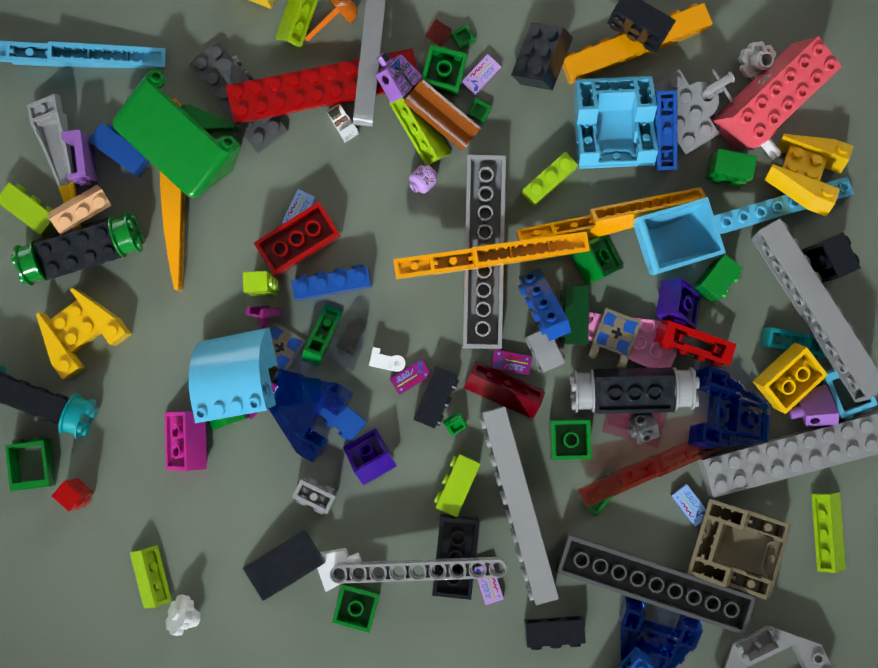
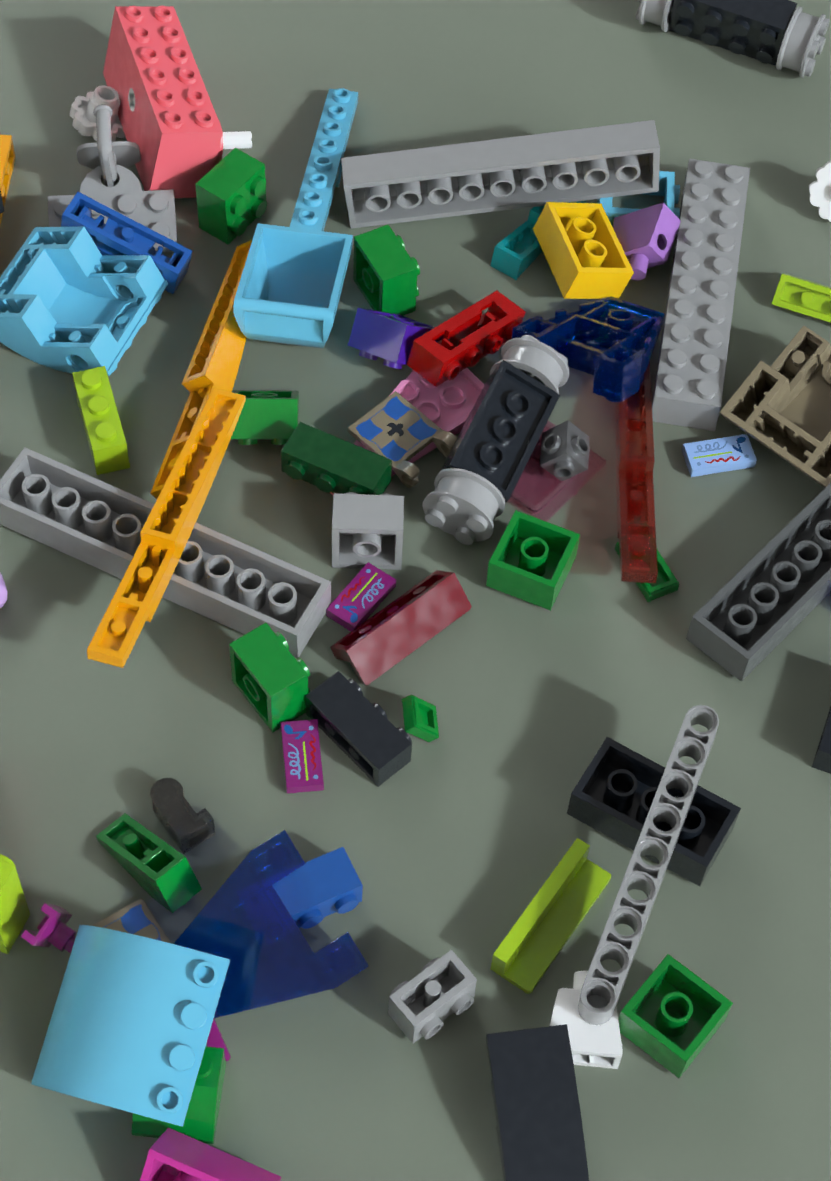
camera: 70 degrees left, 30 degrees down
(332, 283) = (66, 802): blue brick -> none
(369, 456) = (407, 877): dark purple slope -> none
(383, 530) = (550, 919): none -> lime panel
(392, 363) = (253, 779): white leg -> none
(438, 343) = (269, 676): none -> green brick
(456, 484) = (526, 759): lime brick -> none
(489, 587) = (738, 788): lavender tile -> none
(519, 504) = (604, 671): light grey brick -> none
(544, 305) = (294, 489): blue brick -> none
(803, 169) = (293, 115): yellow wedge -> none
(832, 257) = (433, 116): black brick -> none

